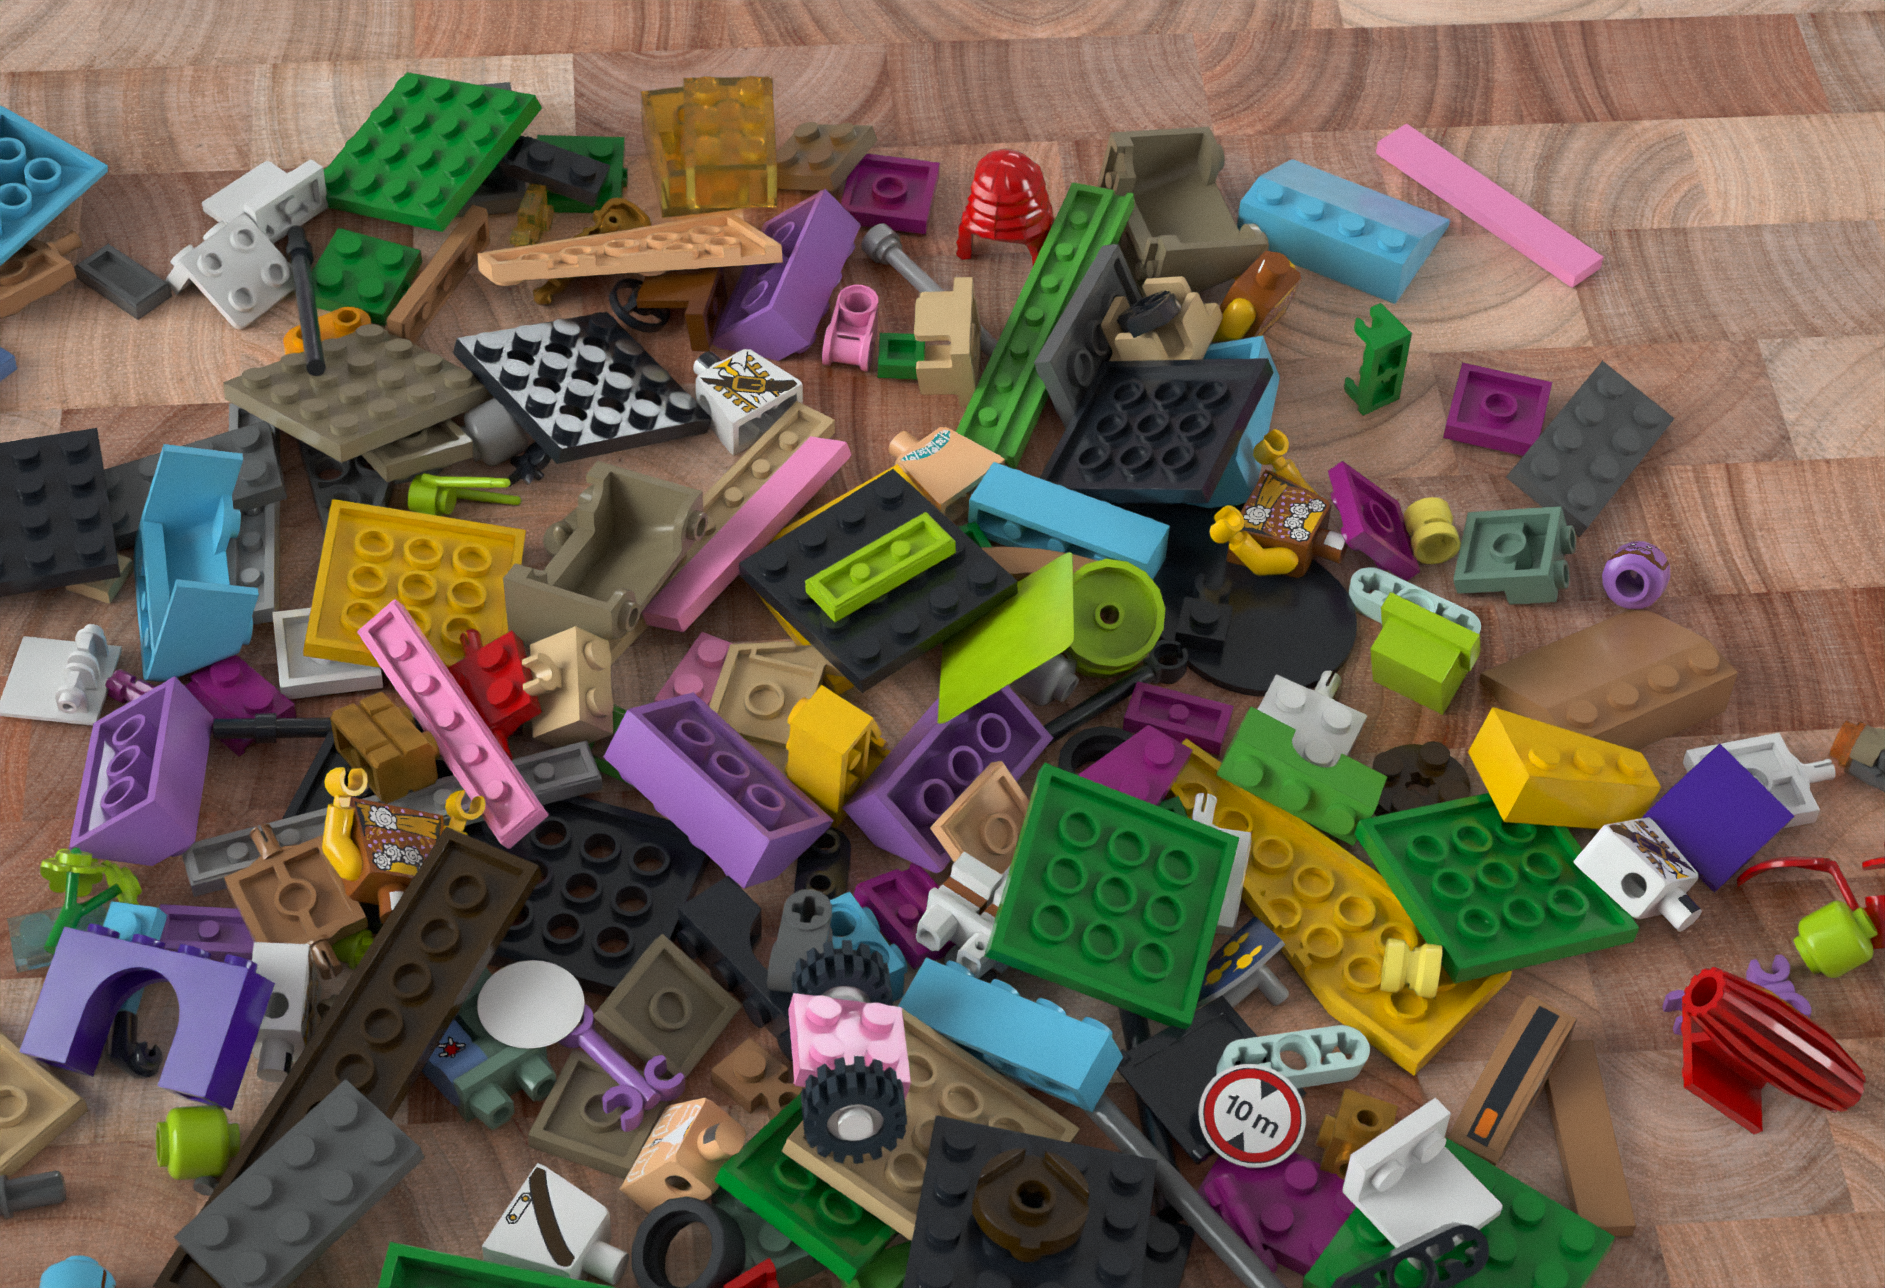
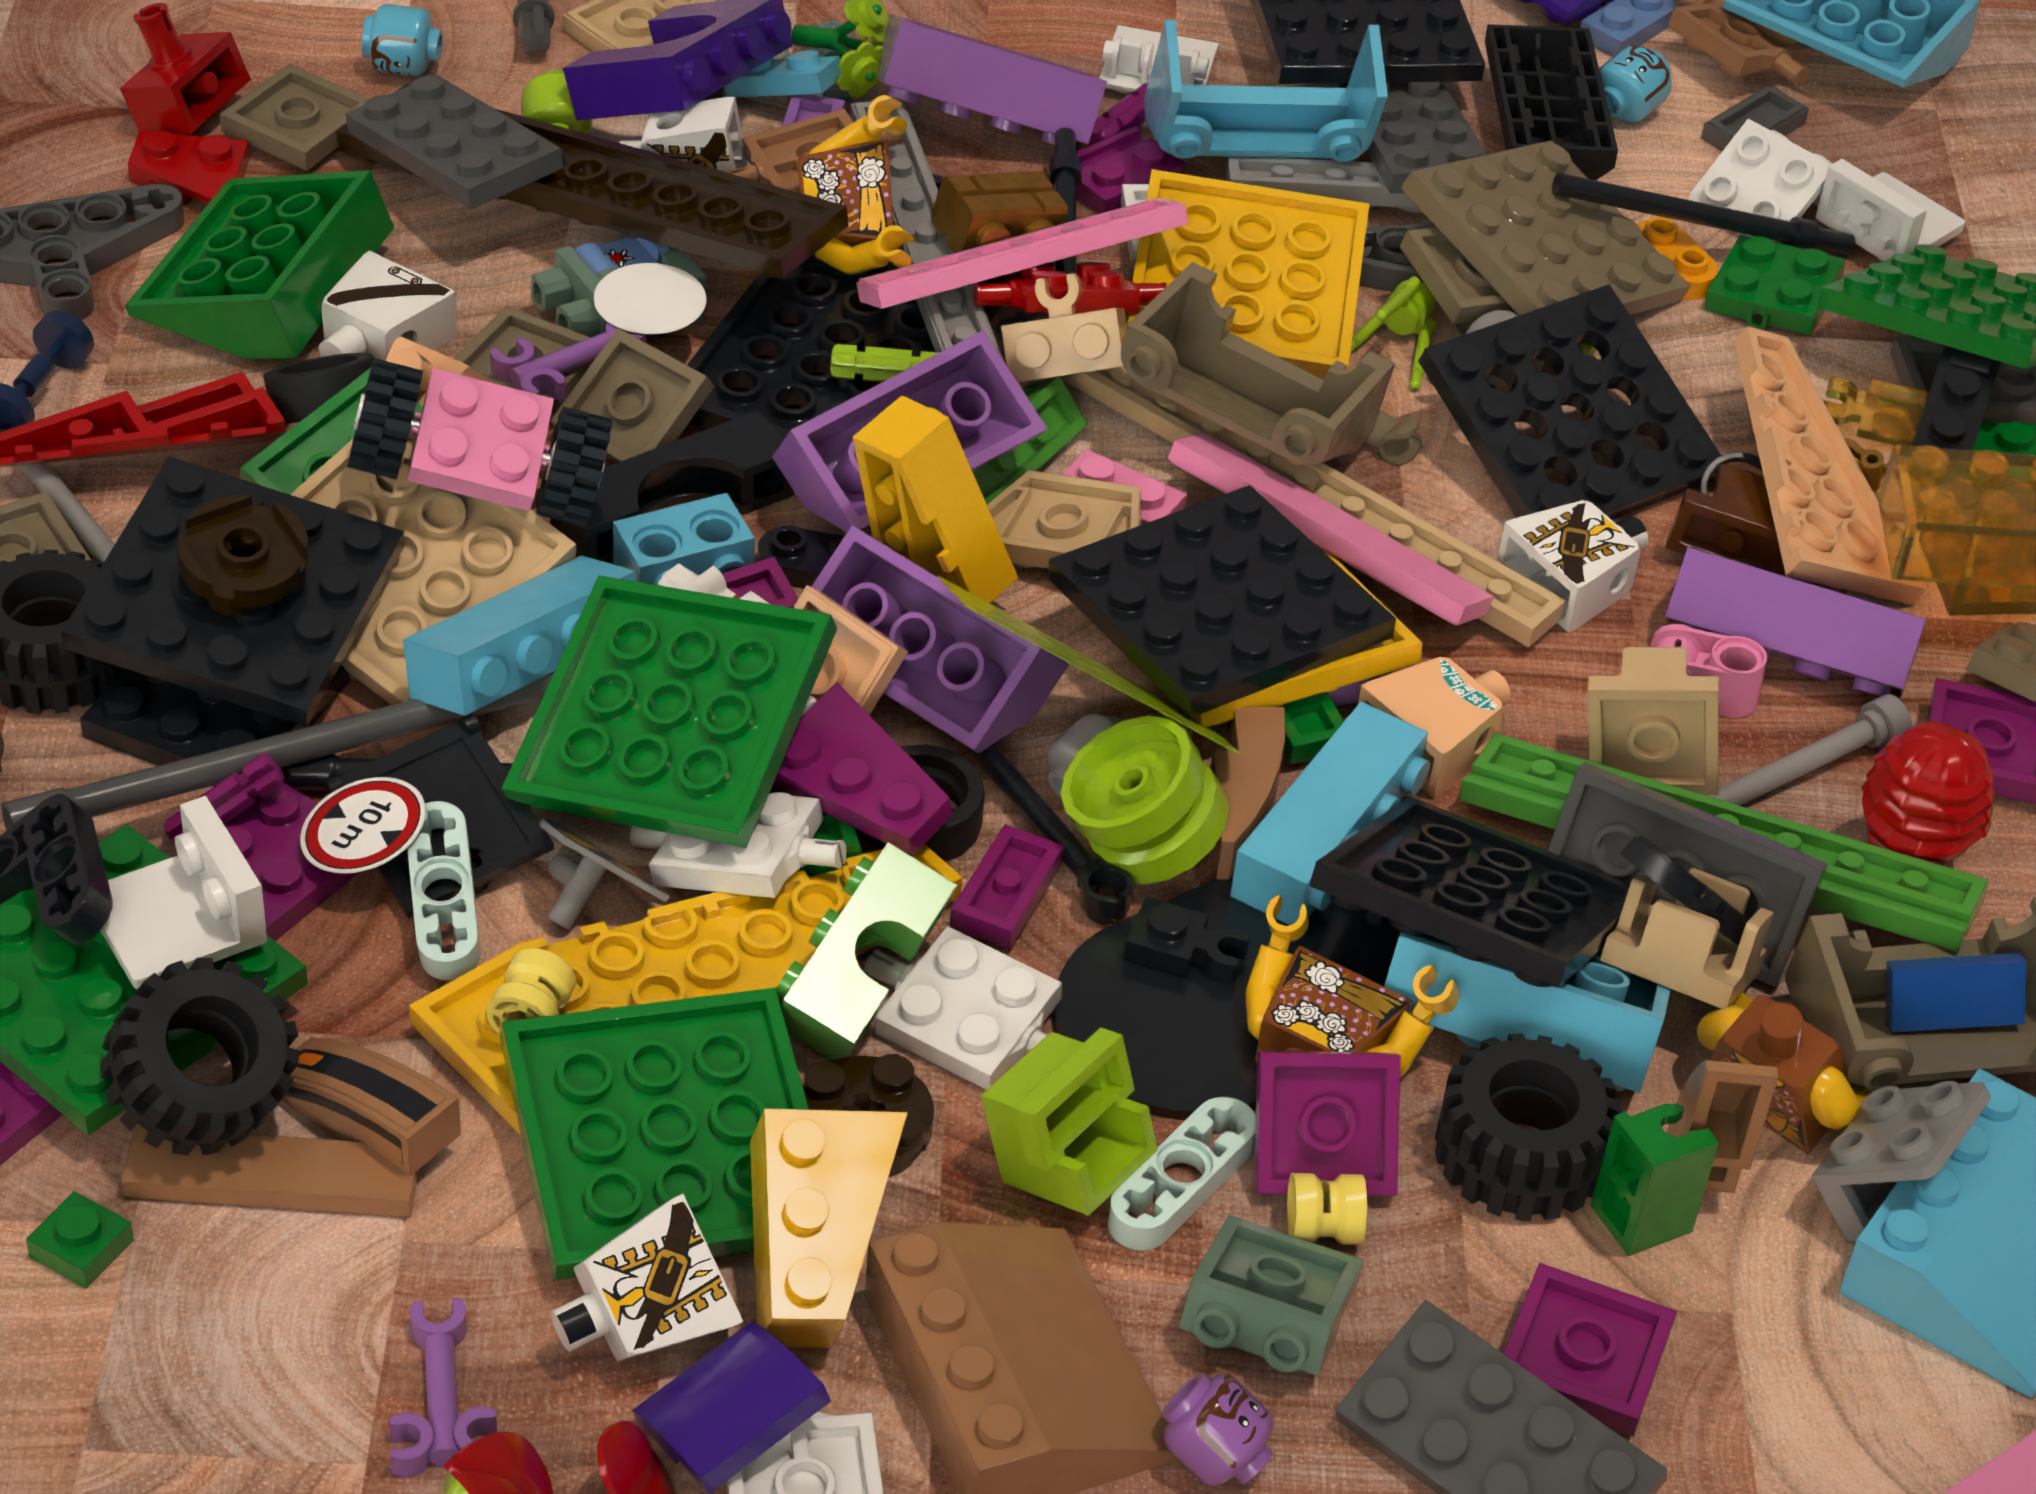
camera: 95 degrees right, 5 degrees down
(91, 346) = (1635, 83): none -> medium azure head
(128, 392) = (1552, 91): none -> black piece
(441, 276) = (1723, 314): medium nougat tile -> none
(591, 826) = (875, 364): none -> lime axle
(802, 926) = (659, 467): dark grey piece -> none
(880, 566) = (1212, 572): lime tile -> none
(1167, 203) = (1955, 992): none -> blue tile
(1324, 235) = (1892, 1140): none -> light grey bracket
(1331, 318) = (1734, 1107): none -> medium nougat slope
(1337, 419) = (1515, 1165): none -> black tyre
(1345, 1133) = (314, 919): pearl gold brick -> none
(1560, 1151) = (231, 1013): none -> black tyre
(1688, 1248) = (80, 1239): none -> green plate
(1749, 1037) = (308, 1317): red plate -> none

